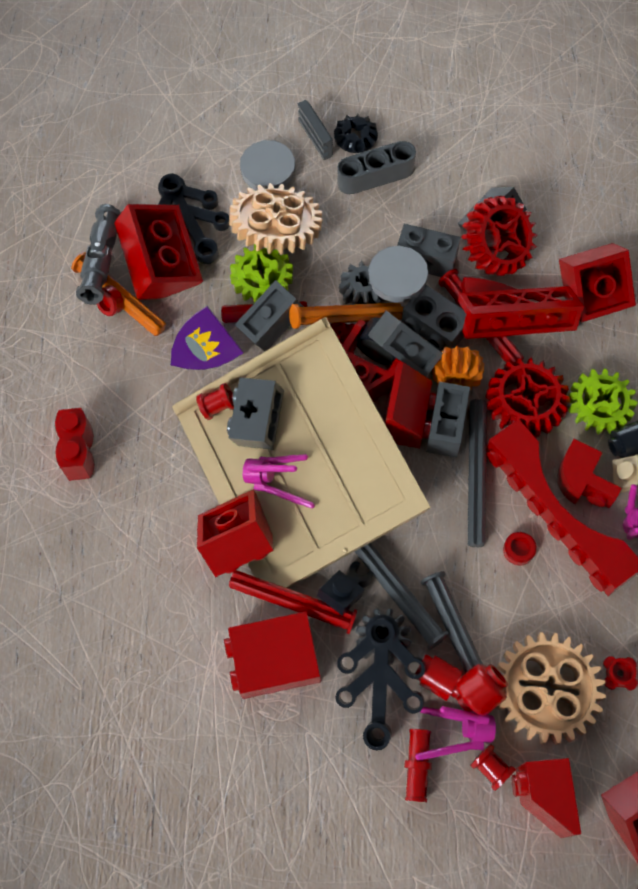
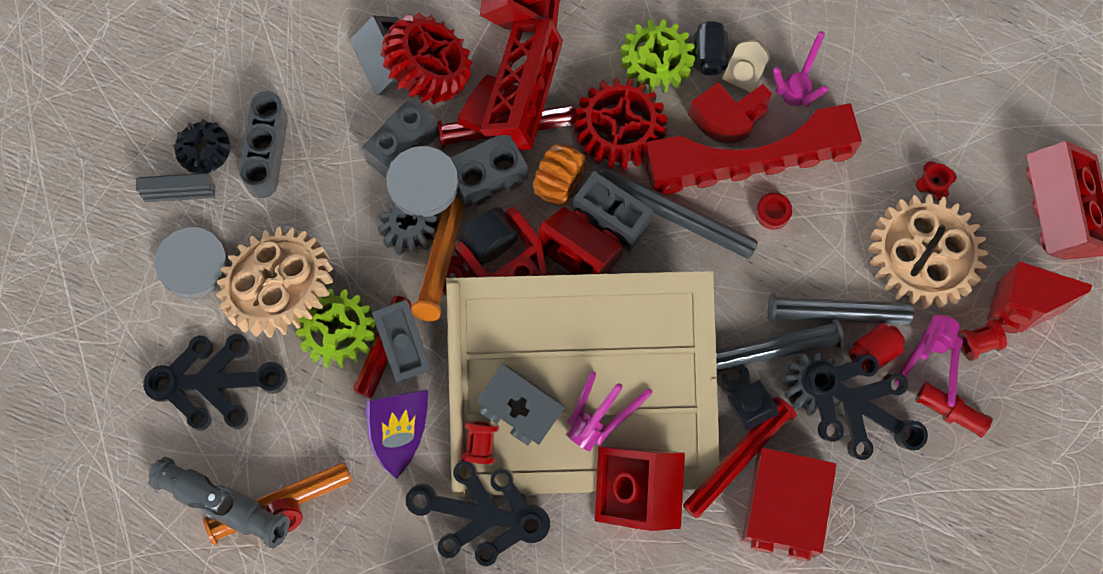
camera: 70 degrees left, 5 degrees up
(157, 250) = (247, 432): red slope -> none
(168, 431) = (484, 514): none -> black plant
(405, 344) = (514, 212): dark grey panel -> none
(481, 689) = (914, 311): red head -> none

